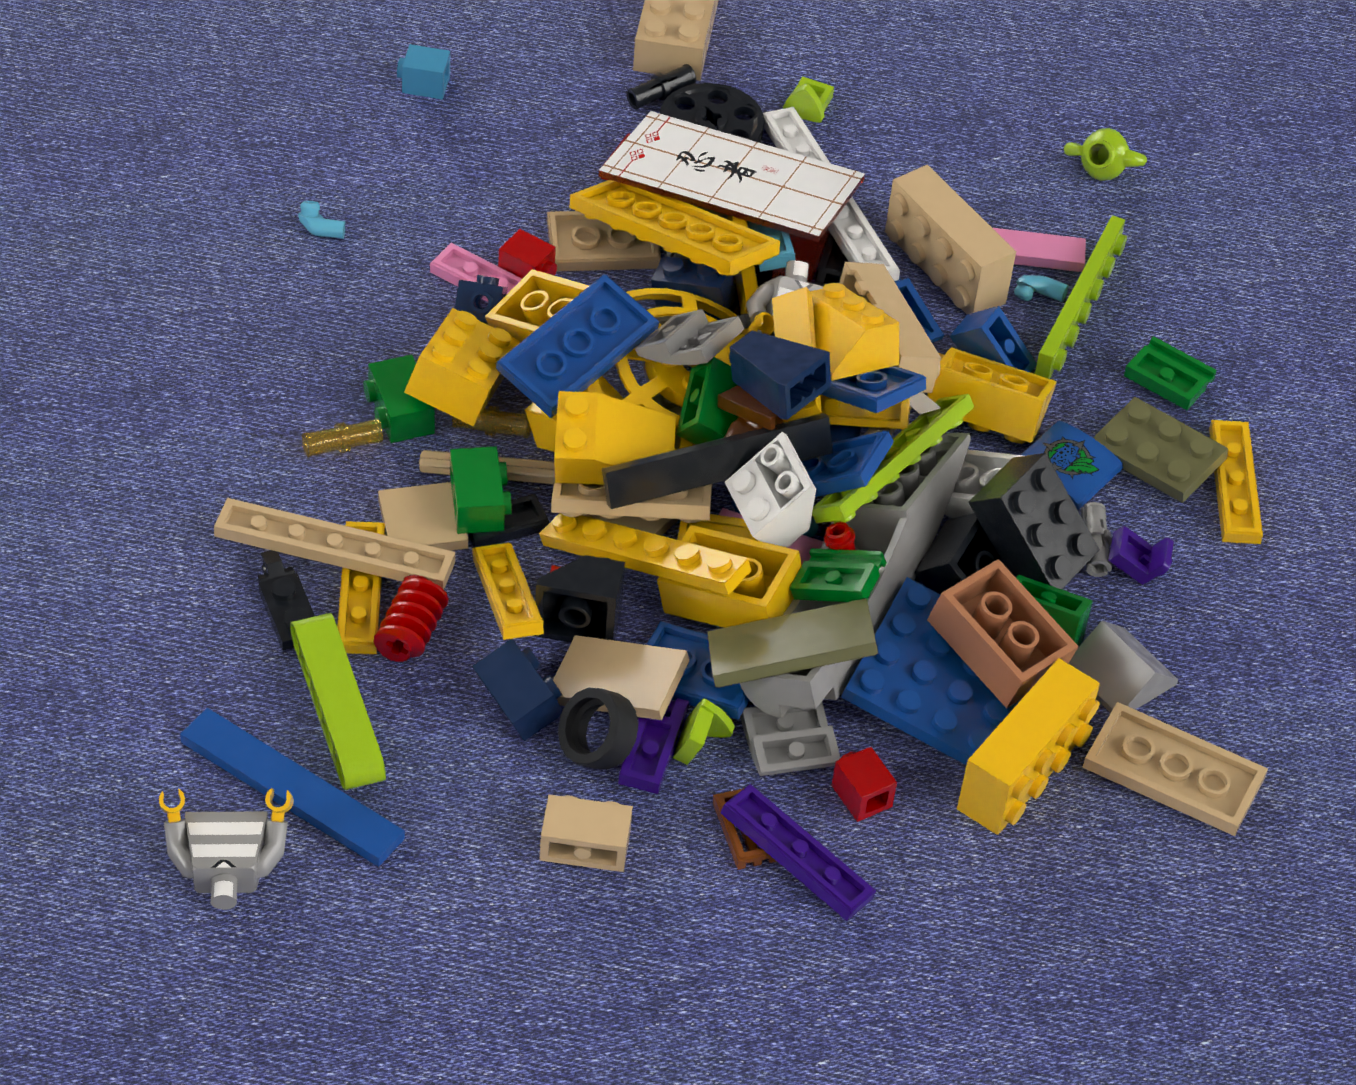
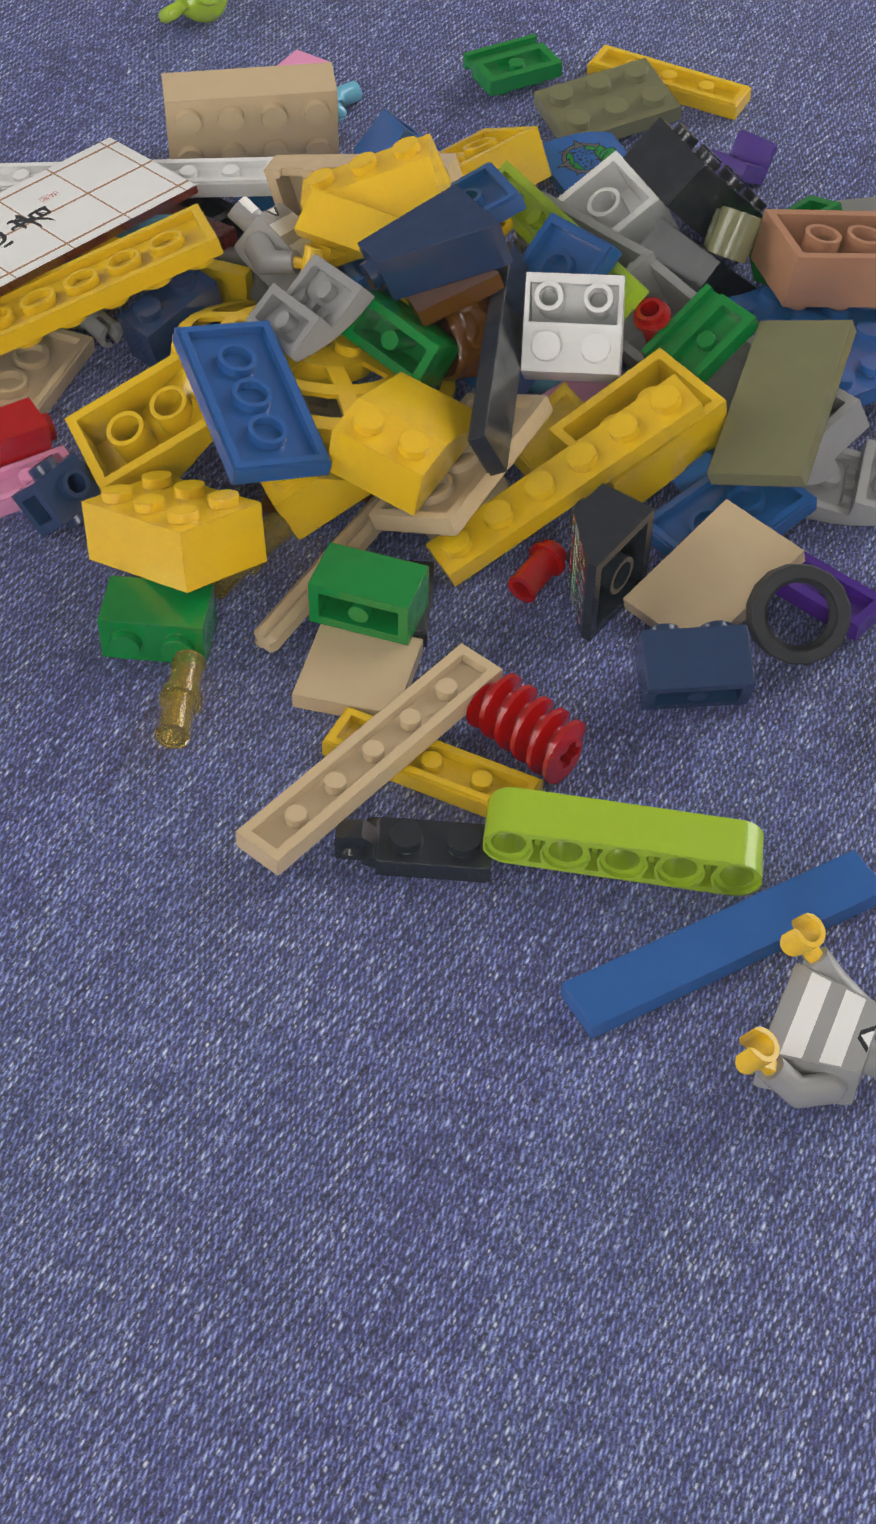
camera: 60 degrees left, 0 degrees up
(507, 591) = (545, 621): yellow tile -> none
(703, 721) = (824, 539): lime tile -> none
(972, 554) = (731, 234): none -> olive piece
(1078, 305) = (378, 78): lime plate -> none

